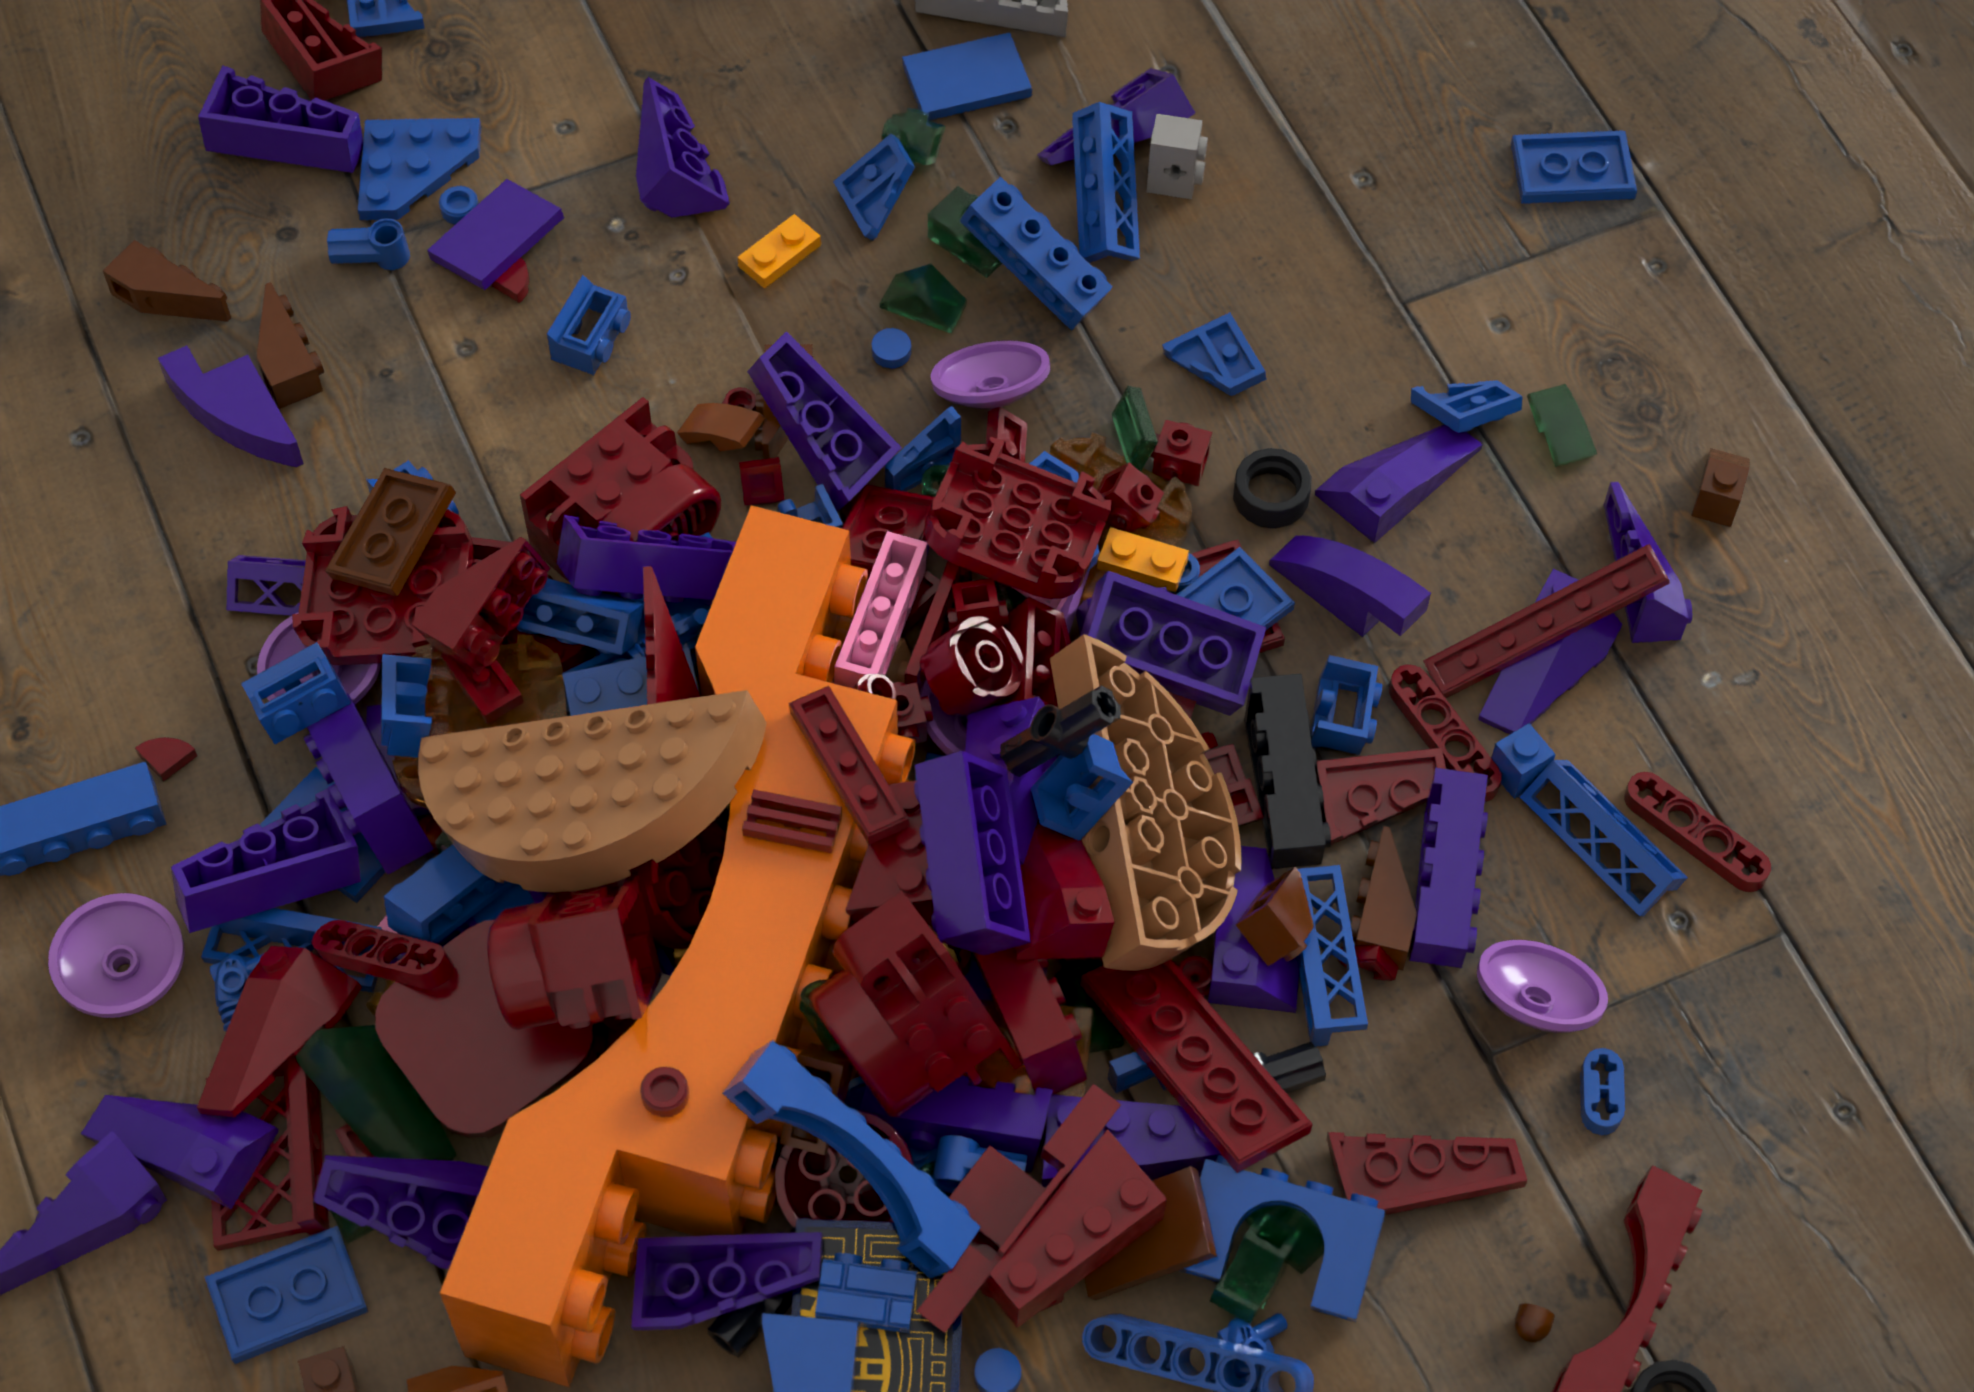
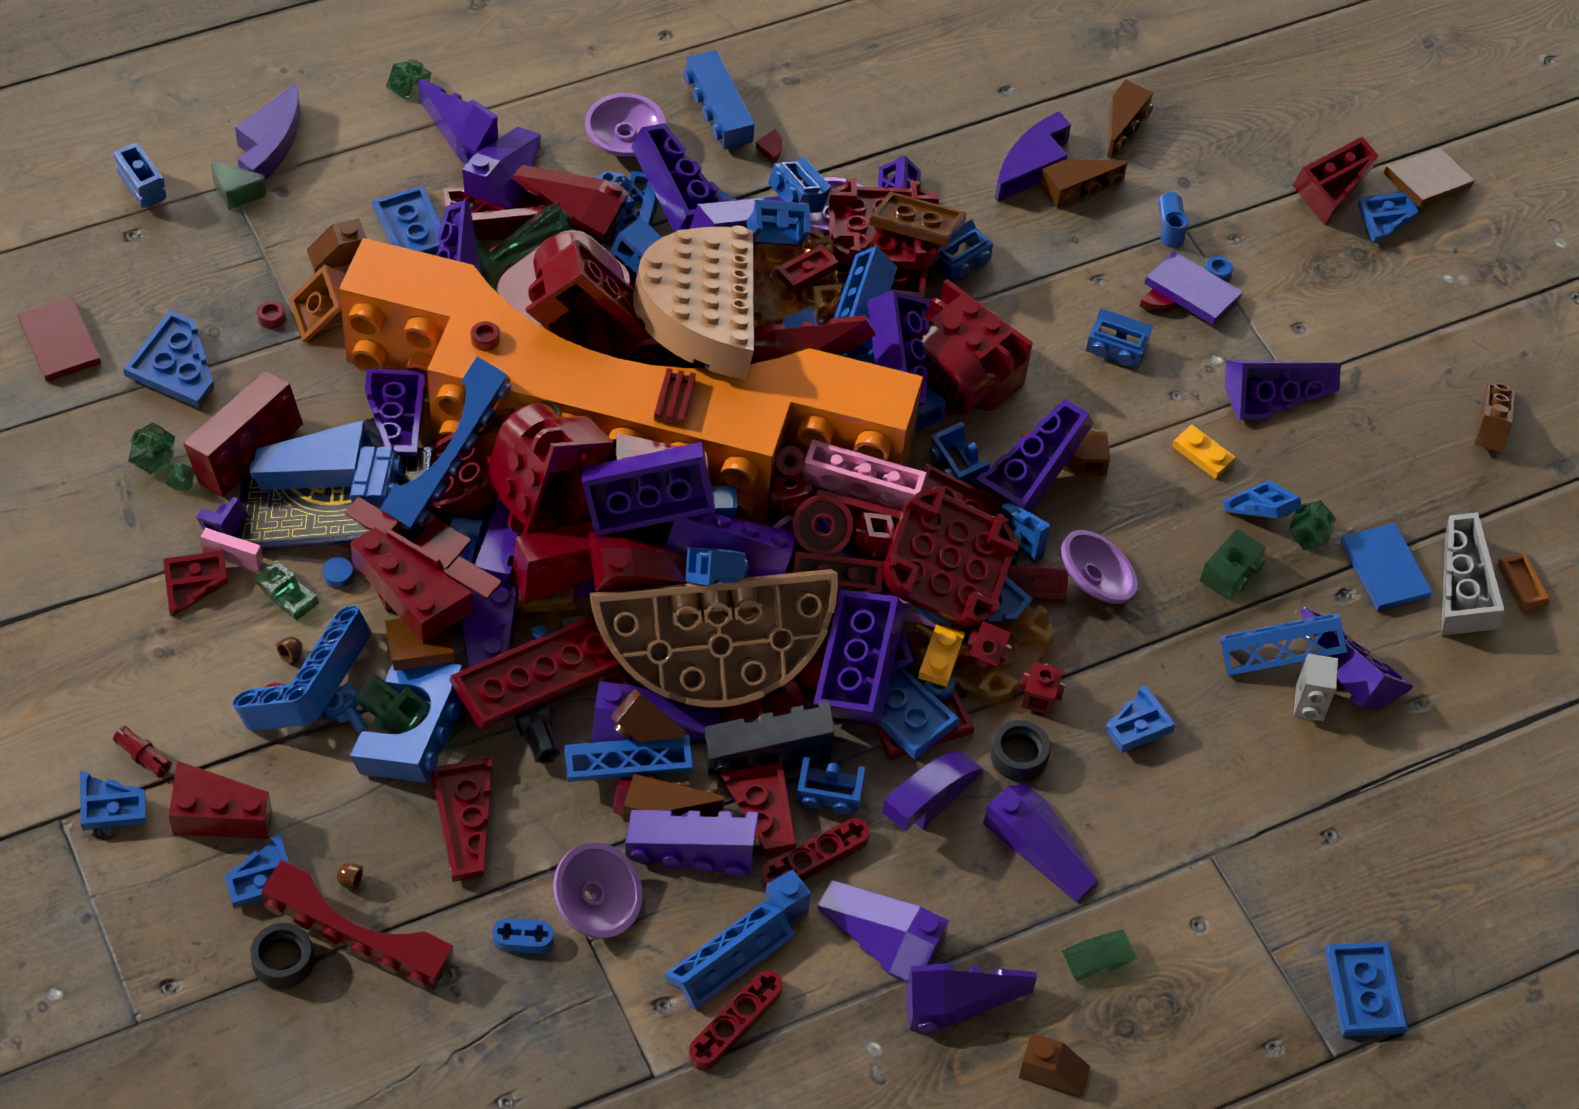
camera: 85 degrees right, 5 degrees down
(278, 125) = (1265, 154): dark purple wedge -> none
(388, 945) = (610, 226): dark red beam -> none
(411, 160) = (1252, 241): blue plate -> none
(480, 605) = (837, 243): dark red slope -> none
(722, 424) = (1036, 410): dark orange slope -> none
(761, 481) = (998, 438): dark red tile -> none
(849, 765) = (717, 422): dark red tile -> none
(891, 348) = (1124, 518): blue tile -> none
(925, 297) = (1168, 539): clear green slope -> none
(1036, 253) = (1206, 592): blue brick -> none
(1060, 731) = (739, 535): black piece -> none
(1134, 427) = (1062, 657): clear green tile -> none
(1468, 404) = (1110, 887): blue wing -> none
(1547, 621) = (899, 910): dark red tile -> none

